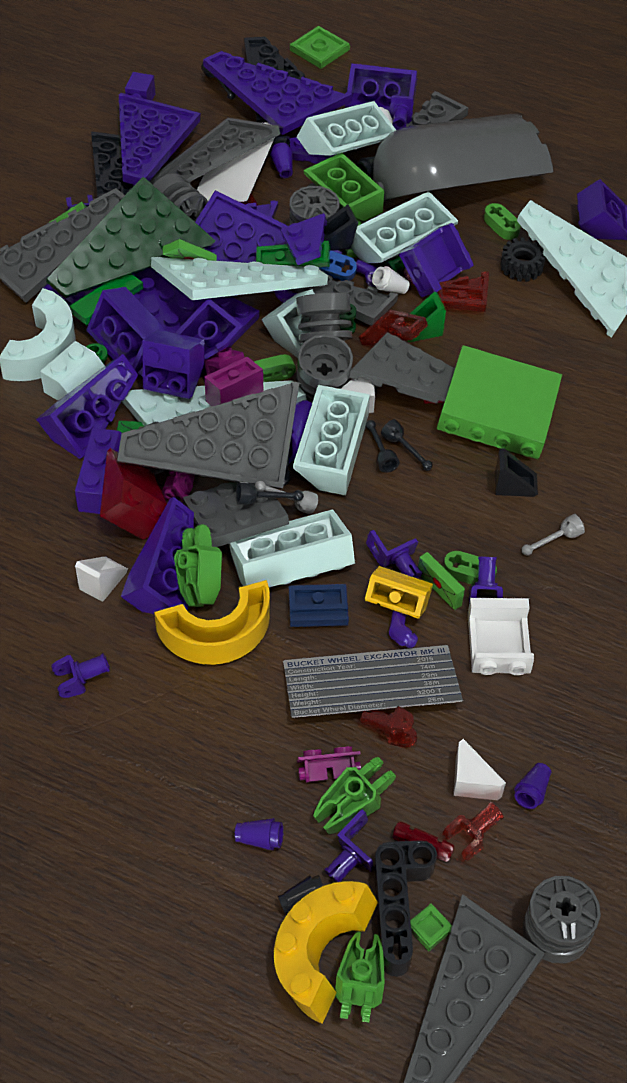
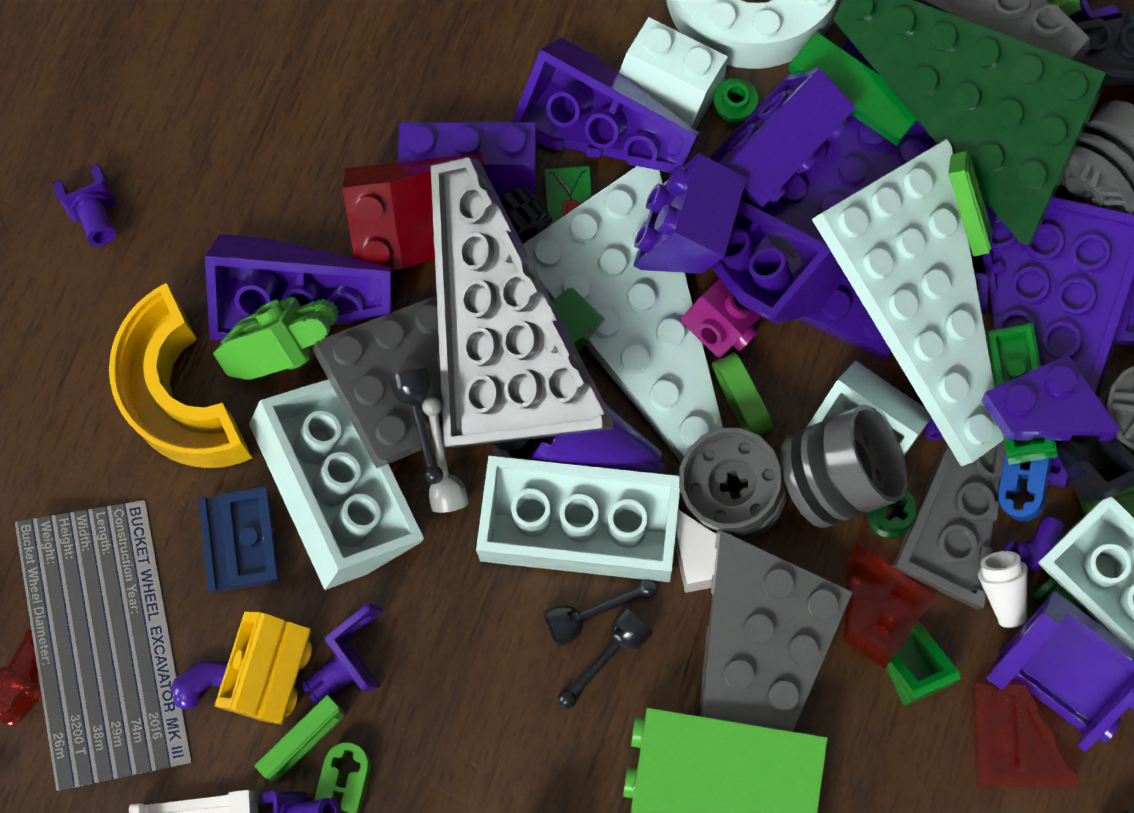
camera: 90 degrees right, 20 degrees up
(99, 576) = (267, 197): white slope -> none
(233, 382) = (658, 331): magenta panel -> none

